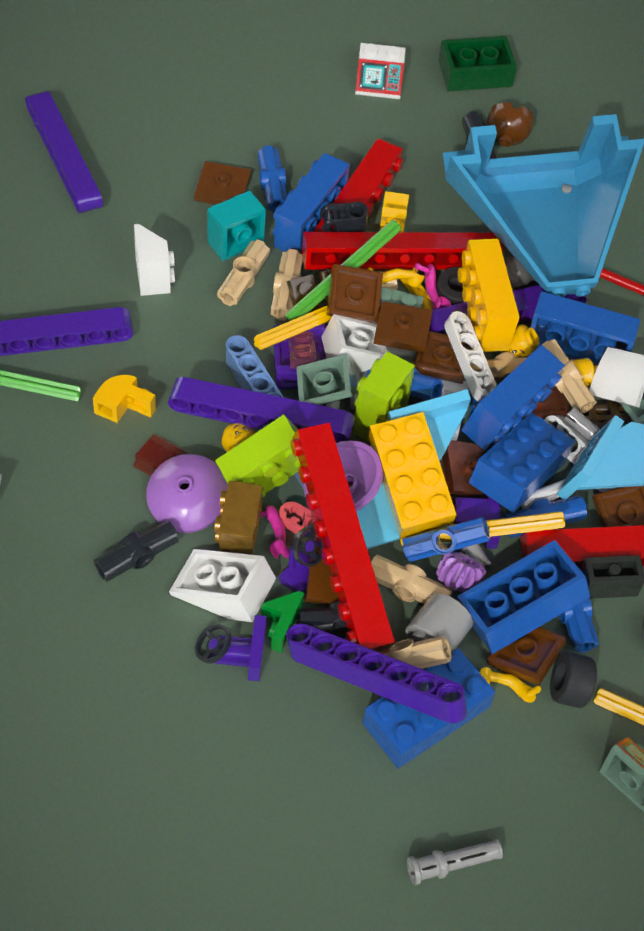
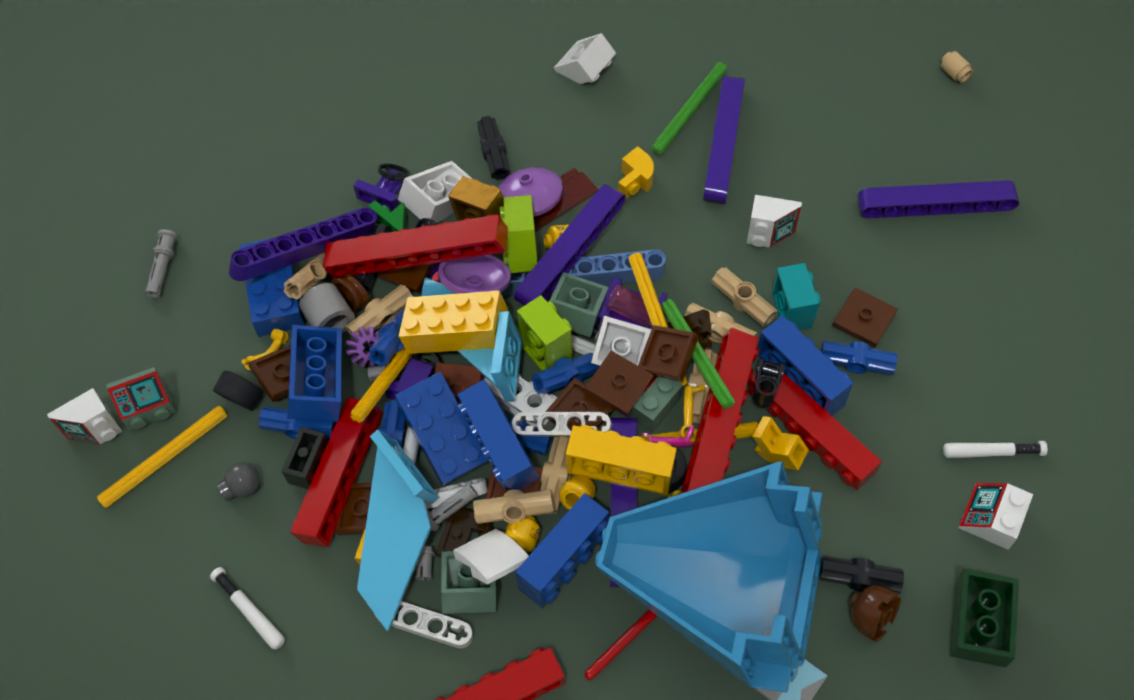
camera: 120 degrees right, 5 degrees up
(325, 92) = (968, 450): none -> white piece
(401, 613) = (352, 291): none -> reddish brown piece

